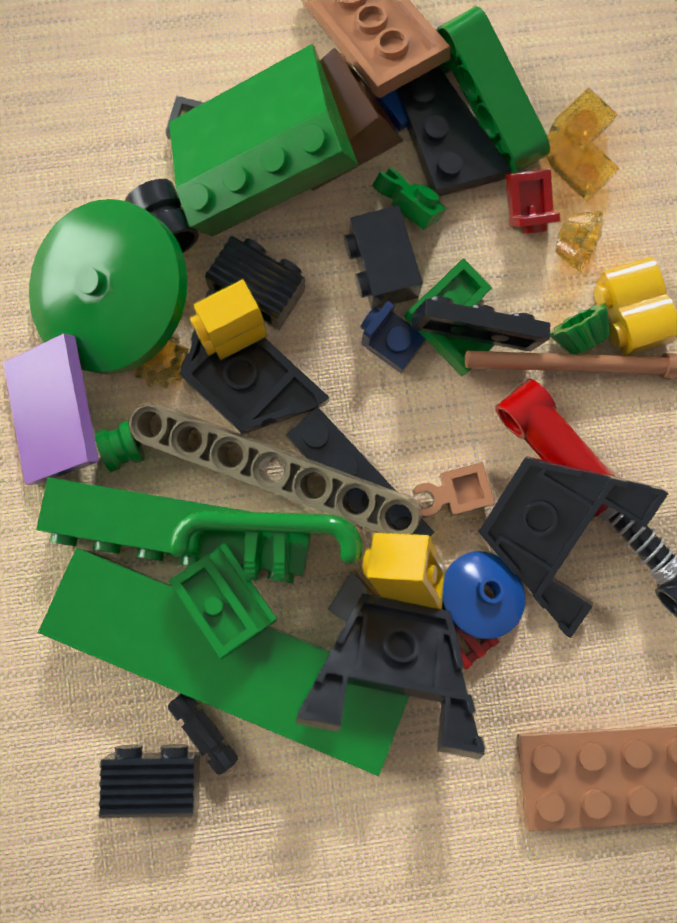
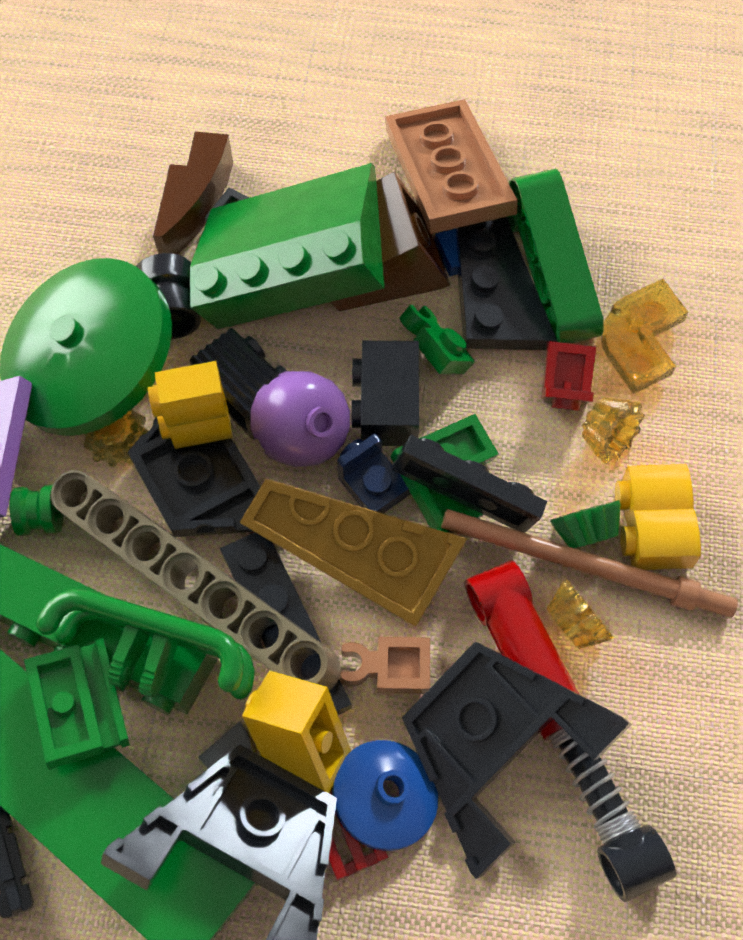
camera: 20 degrees right, 15 degrees down
(146, 109) = (192, 191): none -> reddish brown slope
(320, 303) = (300, 418): none -> medium lavender cylinder
(409, 404) = (366, 550): none -> pearl gold wing
(594, 411) = (577, 618): none -> clear yellow piece

